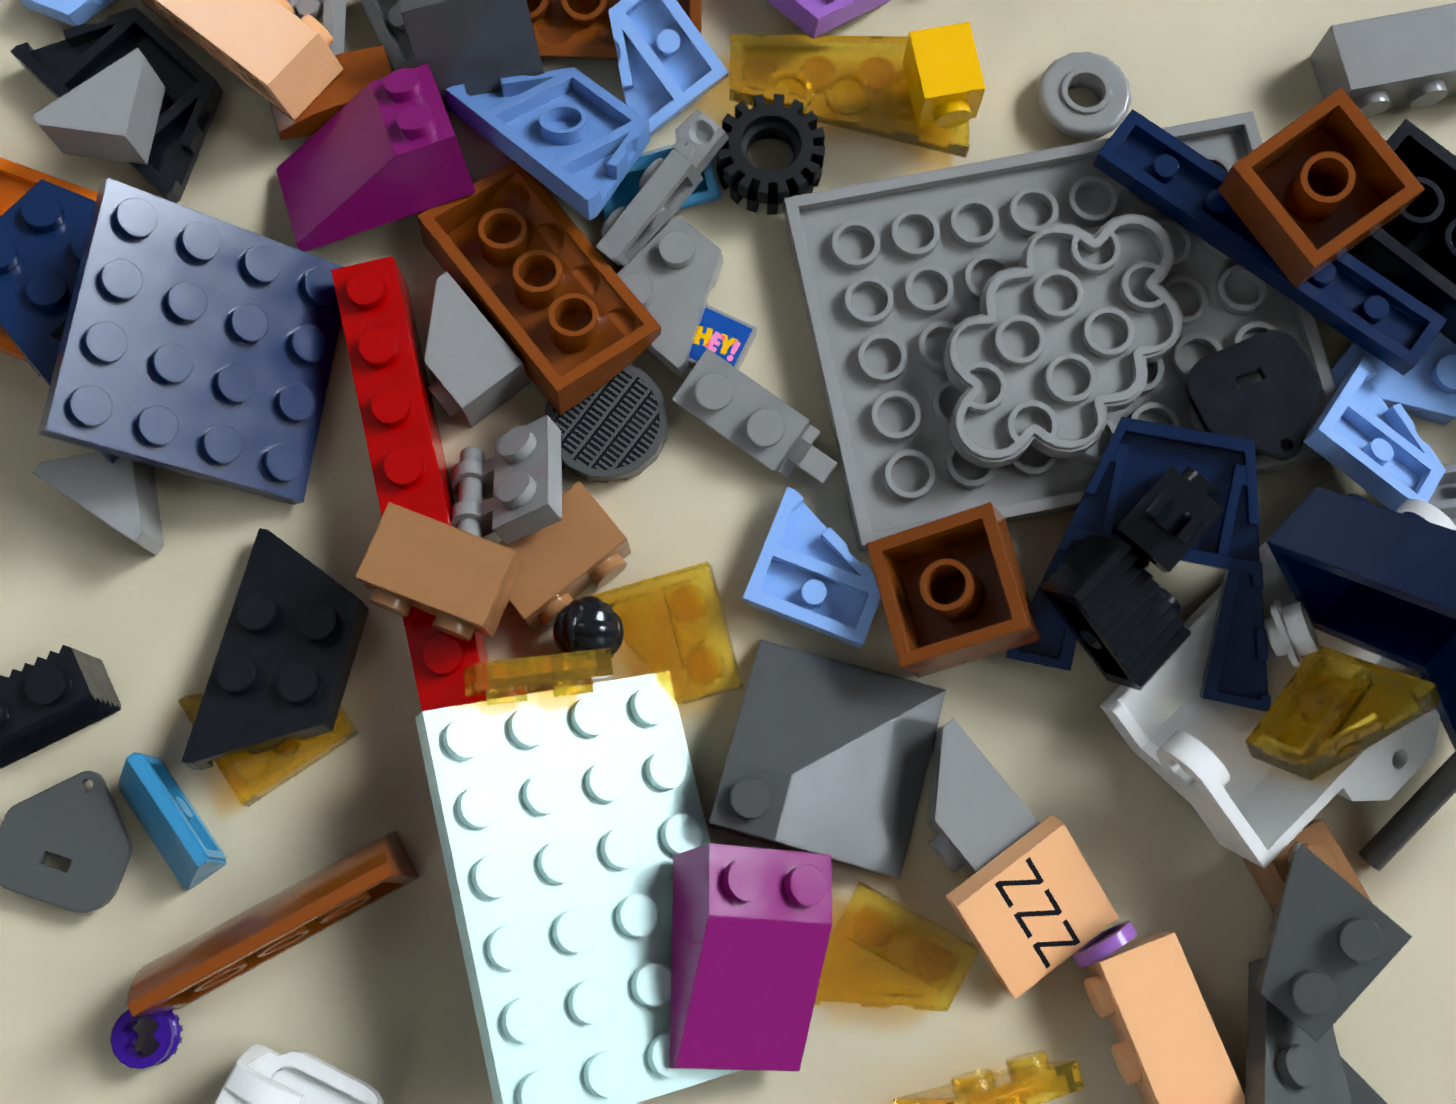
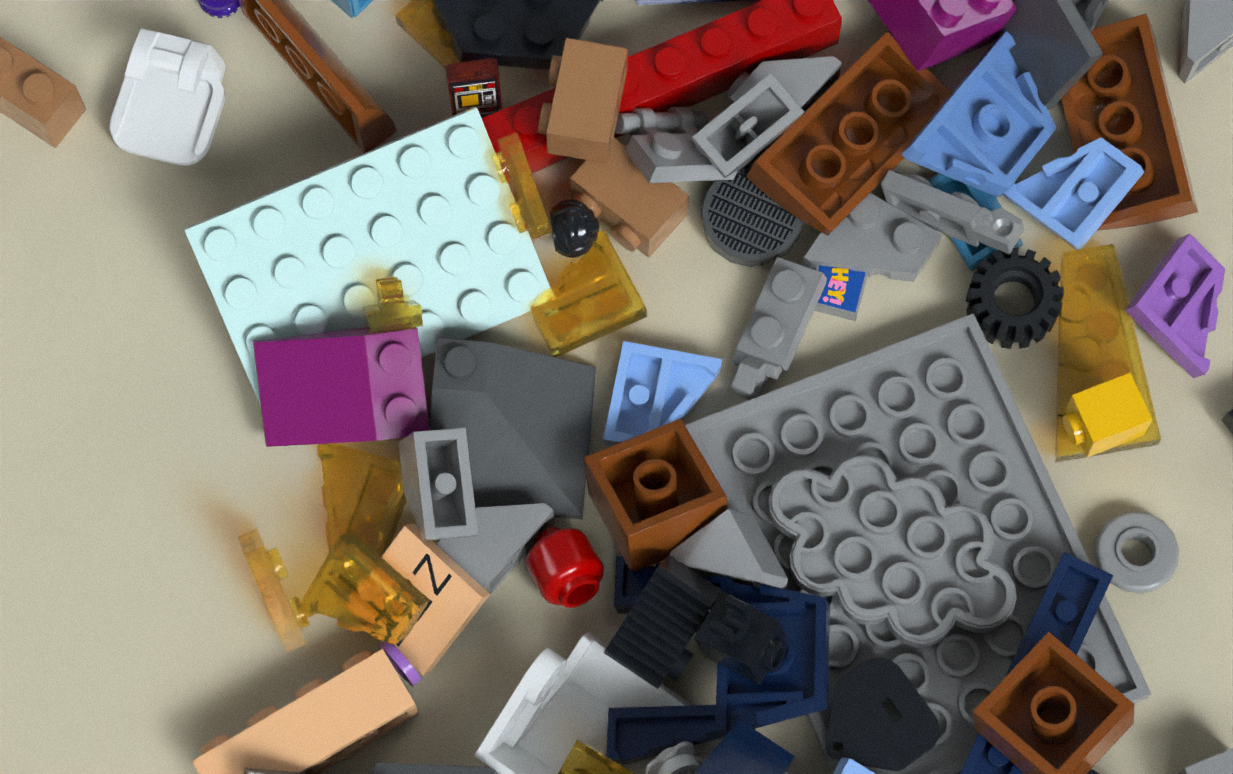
camera: 80 degrees right, 5 degrees down
(377, 716) = (474, 85): none -> tile
(512, 388) = (748, 126): none -> light grey slope
(667, 873) = (391, 309): none -> clear yellow tile
(910, 852) = (439, 483): none -> light grey slope
(1014, 720) = (564, 567): none -> red head
(1025, 971) = (364, 592): none -> clear yellow wing
(1046, 514) = (732, 548): none -> light grey slope

